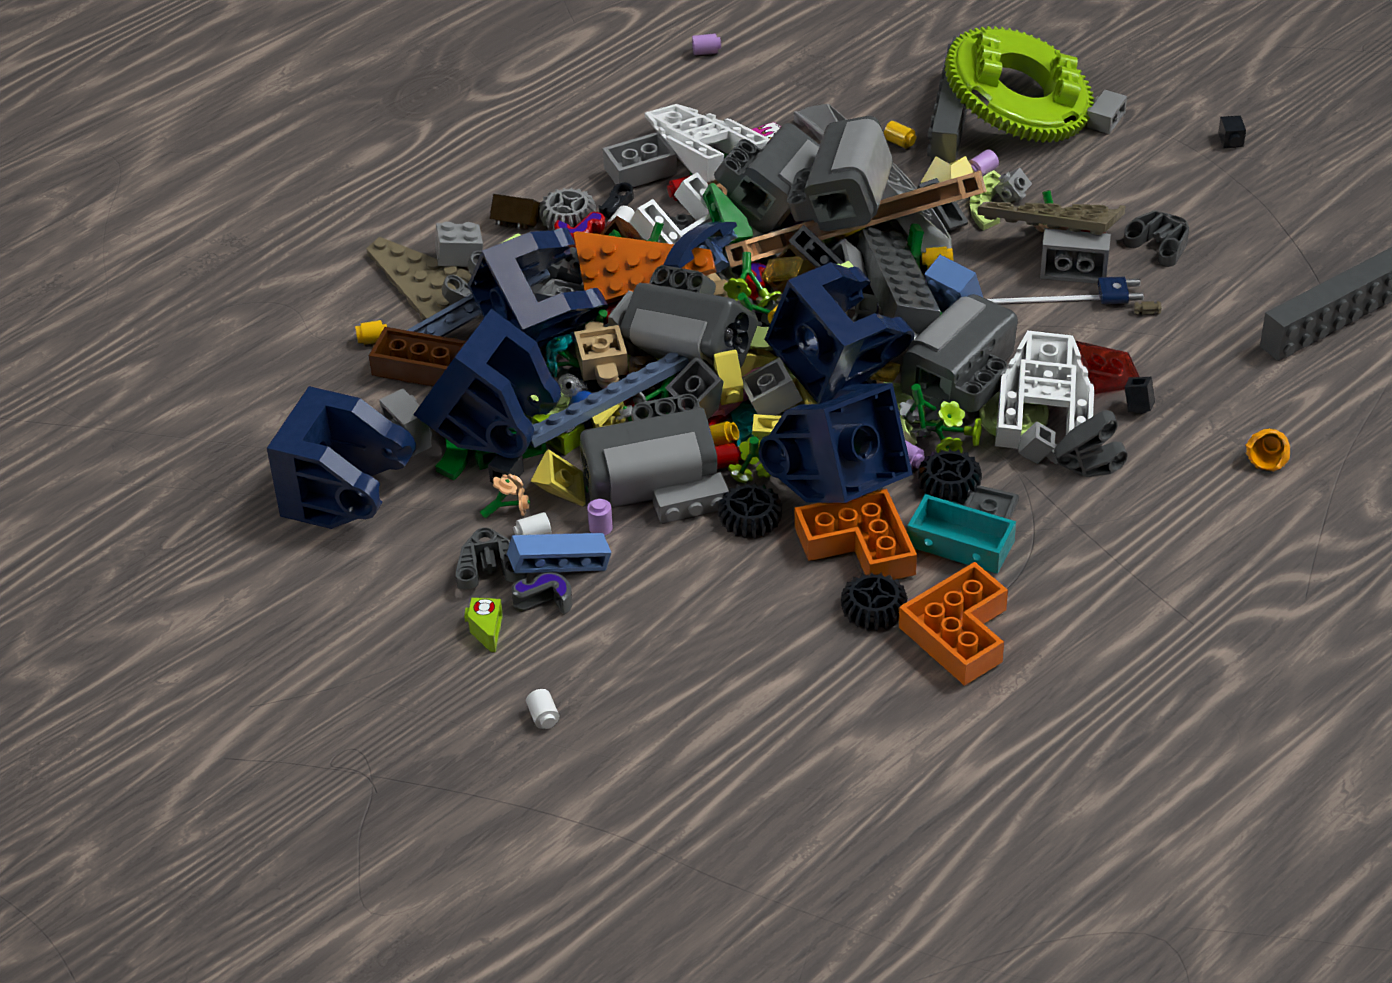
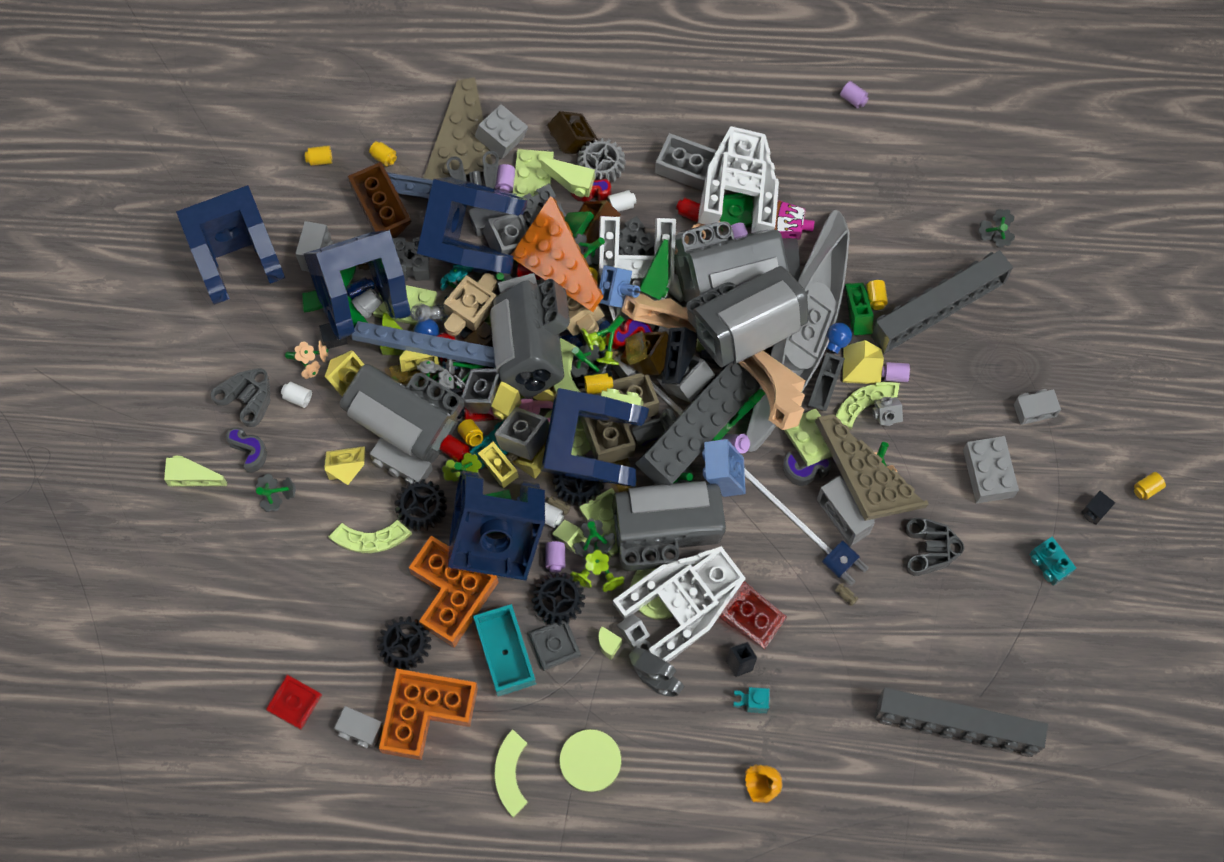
camera: 45 degrees right, 25 degrees up
(315, 372) = (319, 155): none -> yellow brick
(485, 620) = (196, 437): lime slope -> none
(516, 649) = (184, 472): none -> yellowish green slope
(542, 709) = (154, 529): white brick -> none
(558, 552) = (278, 430): medium blue brick -> none
(573, 217) = (572, 177): none -> yellowish green slope
(600, 516) = (336, 424): lavender brick -> none
(615, 201) = (637, 182): black piece -> none
(616, 592) = (267, 485): none -> dark grey plant
(647, 536) = (344, 463): none -> light yellow slope
(681, 251) = (597, 278): dark blue slope -> none
(745, 569) = (370, 542): none -> yellowish green tile
(841, 718) = (294, 702): none -> red tile
(909, 151) = (859, 309): none -> green slope
(912, 170) = (839, 337): none -> blue piece
(921, 35) = (1003, 236): none -> dark grey plant
(922, 681) = (358, 727): none -> light grey brick
(932, 254) = (752, 429): yellow brick -> none
(977, 64) = (1038, 324): lime piece -> none
(984, 238) = (808, 439): none -> yellowish green plate
(1008, 268) = (805, 474): none -> dark grey animal
(1028, 469) = (609, 642): none -> yellowish green brick
(1079, 612) = (506, 773): none -> yellowish green tile
(1127, 549) = (590, 760): none -> yellowish green tile
(1132, 164) = (990, 469): none -> light grey brick
(1186, 410) = (756, 700): none -> teal brick
(1244, 96) = (1149, 486): none -> yellow brick
(1251, 179) = (1052, 561): none -> teal brick

